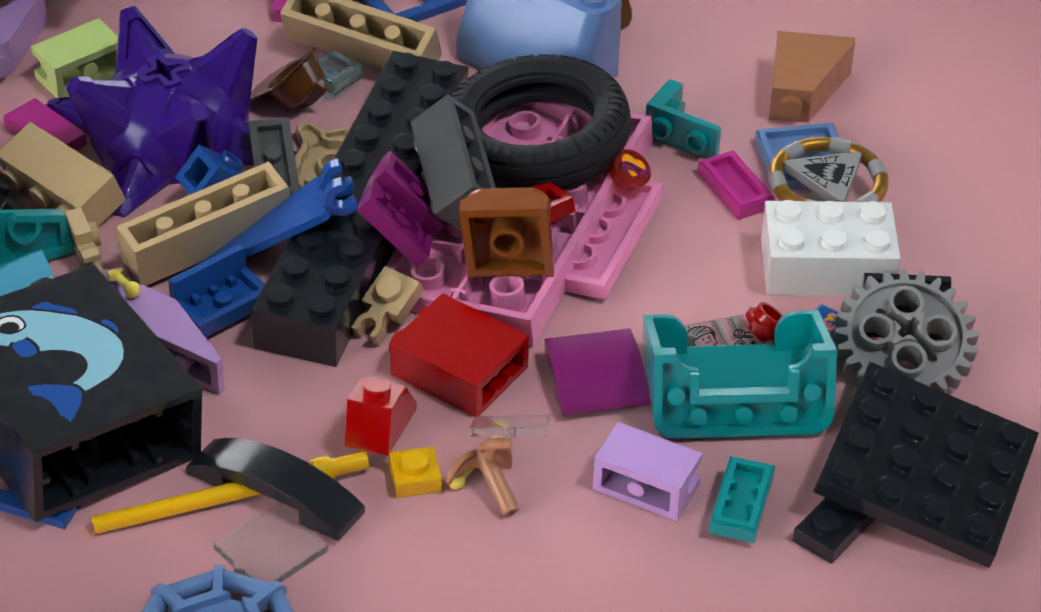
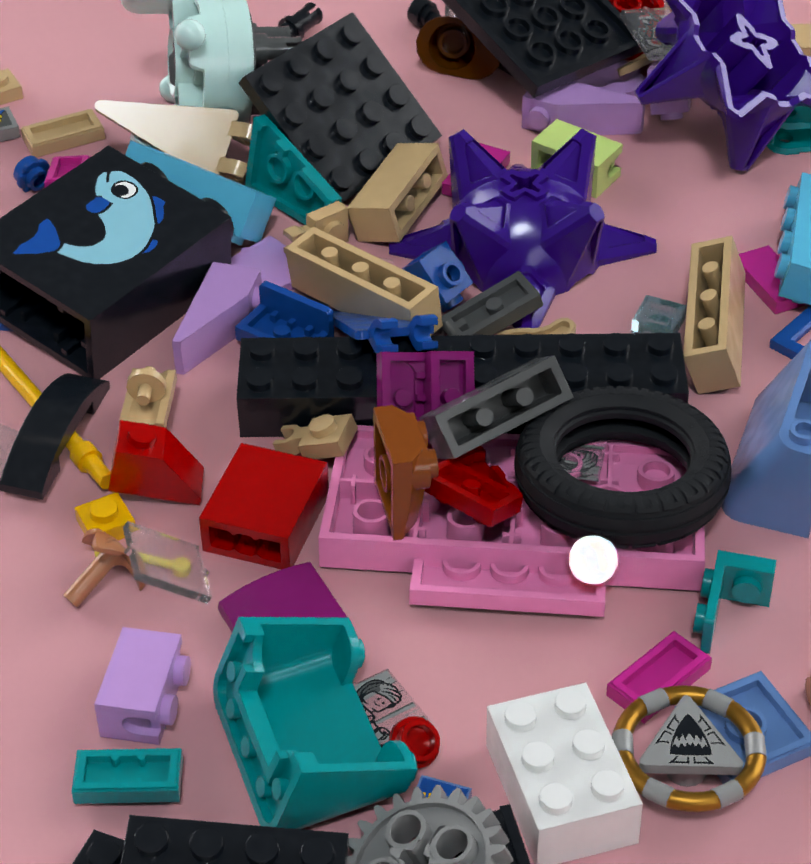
camera: 75 degrees right, 0 degrees up
(131, 288) = (243, 263): light yellow hinge -> none
(283, 402) = (149, 396): none -> tan hips
(294, 84) = (612, 290): reddish brown piece -> none

